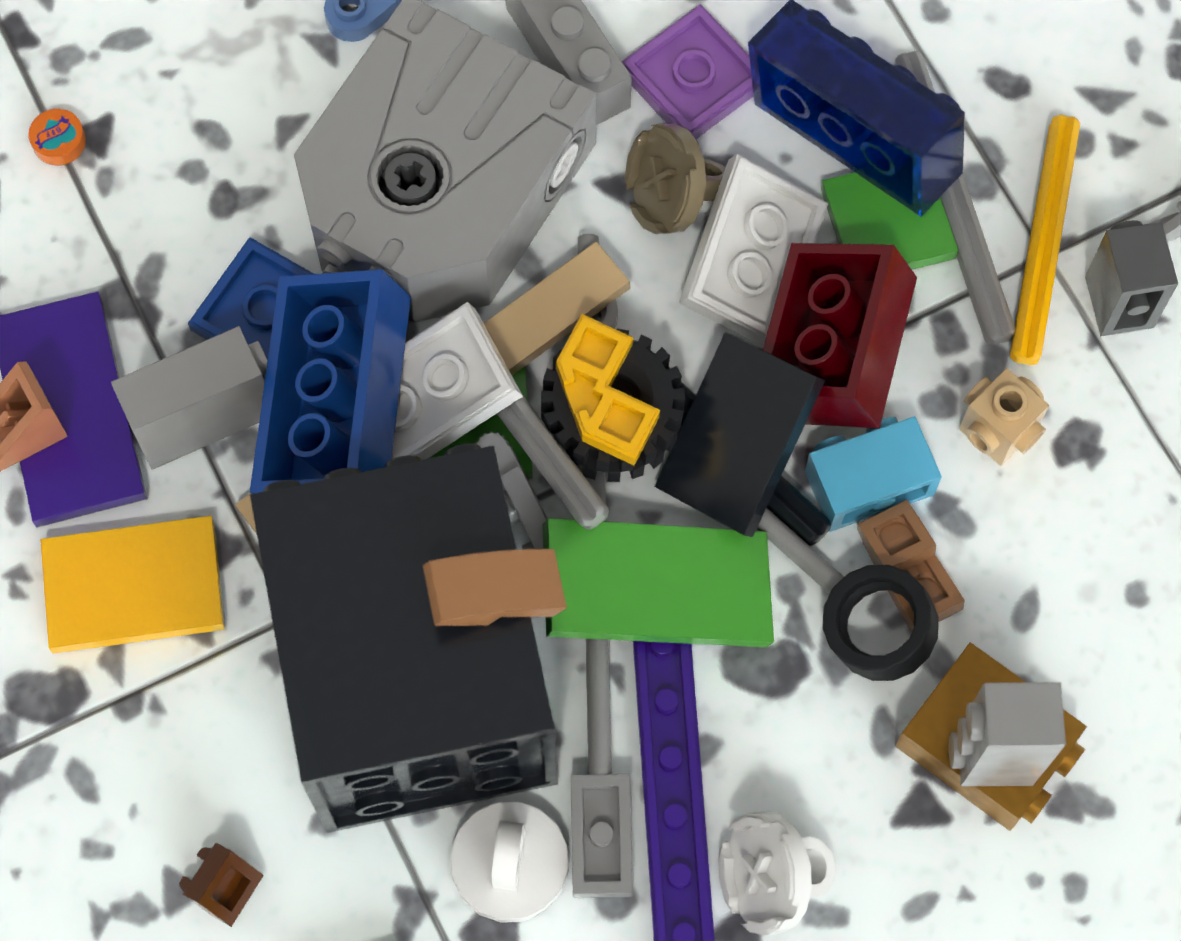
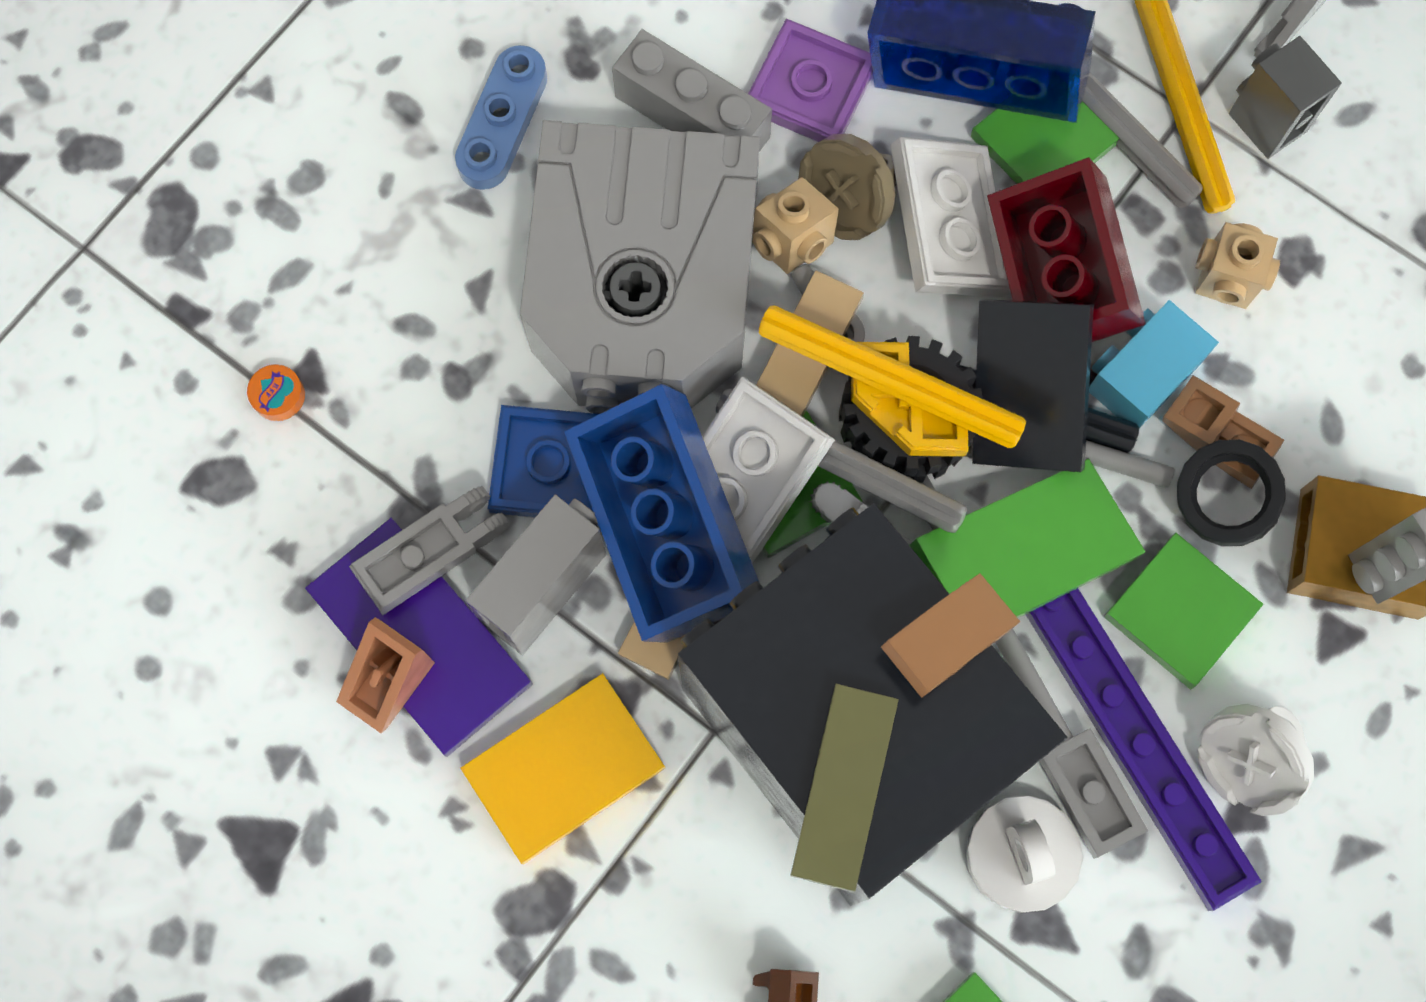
camera: 25 degrees left, 5 degrees up
(111, 331) = (425, 550): none -> light grey hinge
(328, 674) = (844, 788): none -> olive tile
(597, 359) = (892, 376): none -> yellow axle
(600, 193) = (794, 225): none -> tan brick
(782, 713) = (1183, 611): none -> bright green tile

